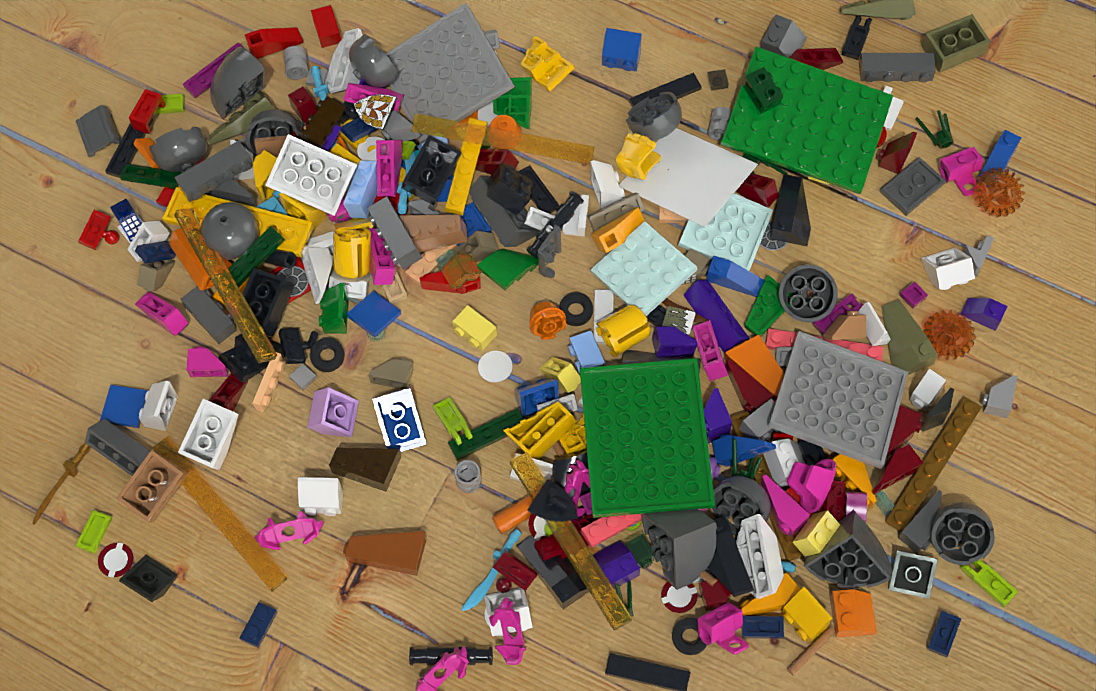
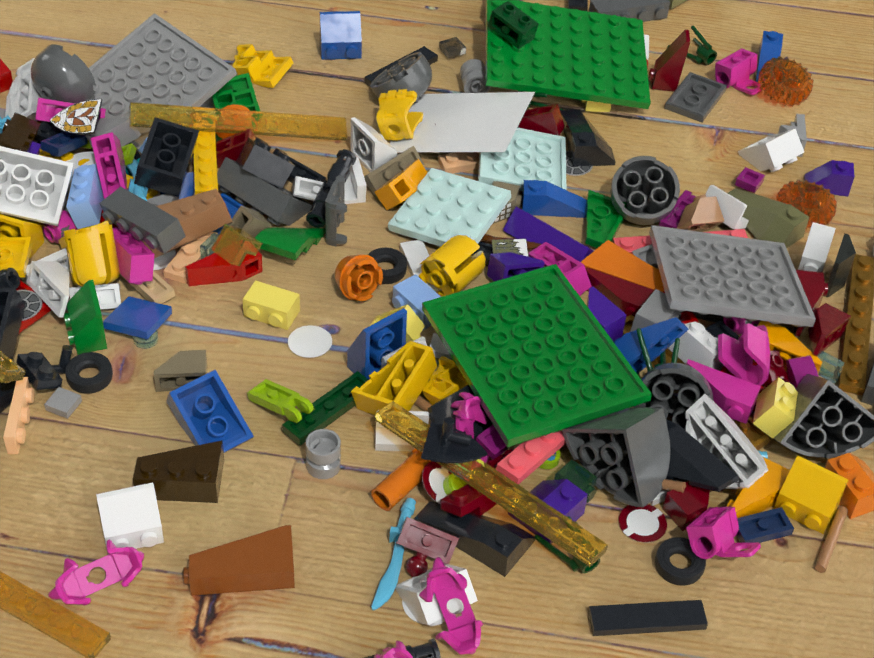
camera: 25 degrees left, 20 degrees down
(332, 413) = (116, 429): lavender slope -> none

